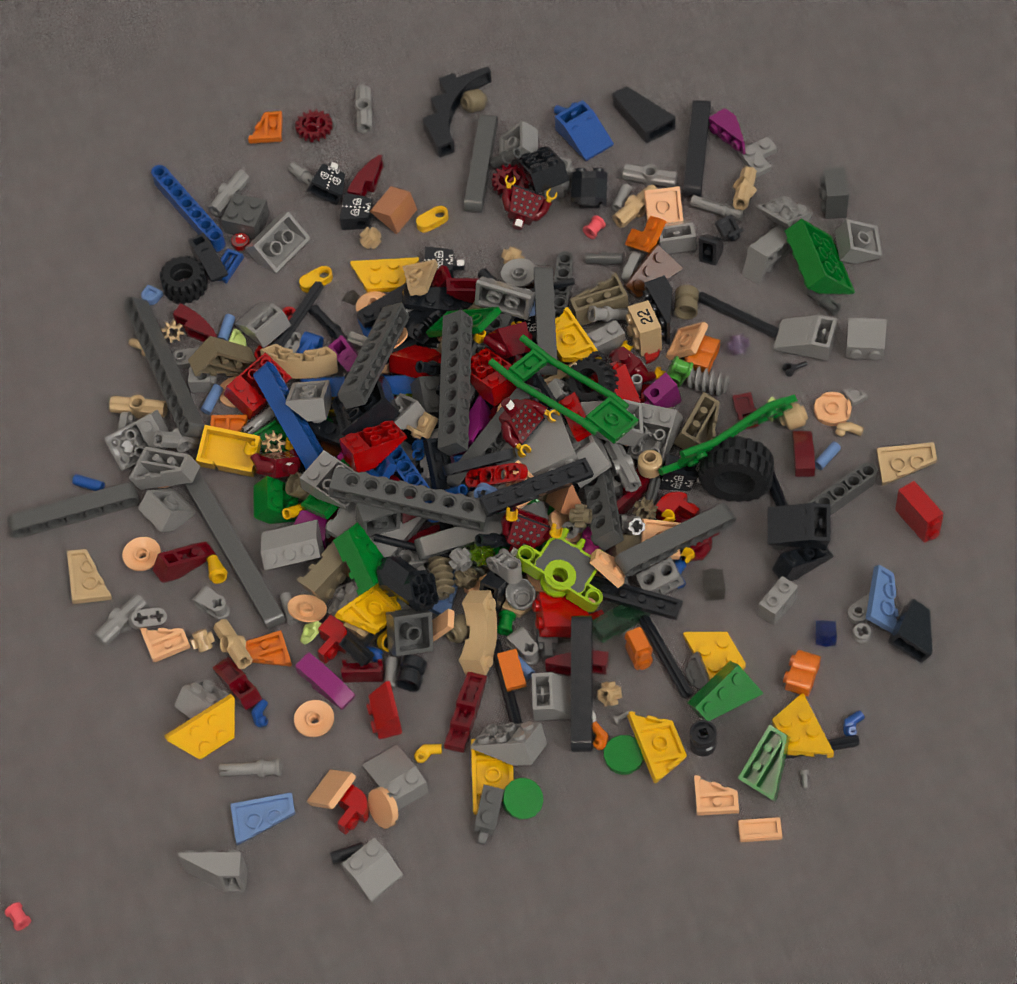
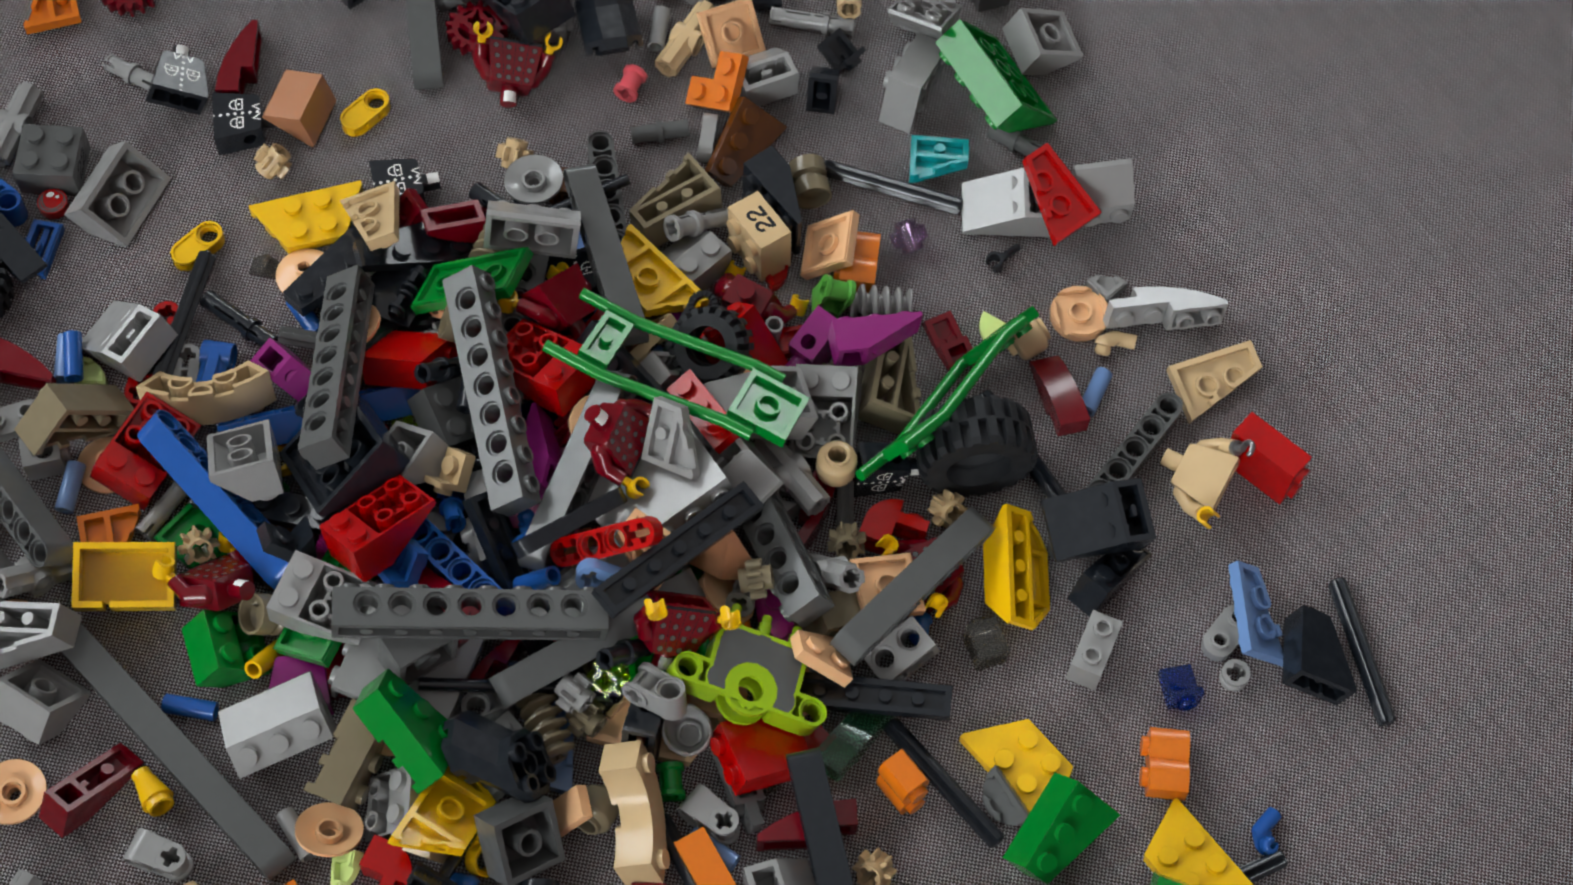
camera: 25 degrees left, 5 degrees up
(230, 327) = (73, 356): none -> blue axle
(247, 529) = (190, 707): none -> blue axle
(317, 445) = (282, 543): none -> black slope
(548, 425) = (670, 439): none -> light grey wing
(690, 395) = (865, 338): none -> magenta slope
(711, 500) = (946, 508): none -> tan gear
(745, 546) = (1016, 569): none -> yellow wedge
(770, 300) = (936, 156): none -> teal wing
(834, 333) = (1058, 194): none -> red wing
(877, 514) = (1204, 474): none -> tan torso
(883, 411) = (1170, 305): none -> light grey slope
(946, 635) = (1362, 652): none -> black axle

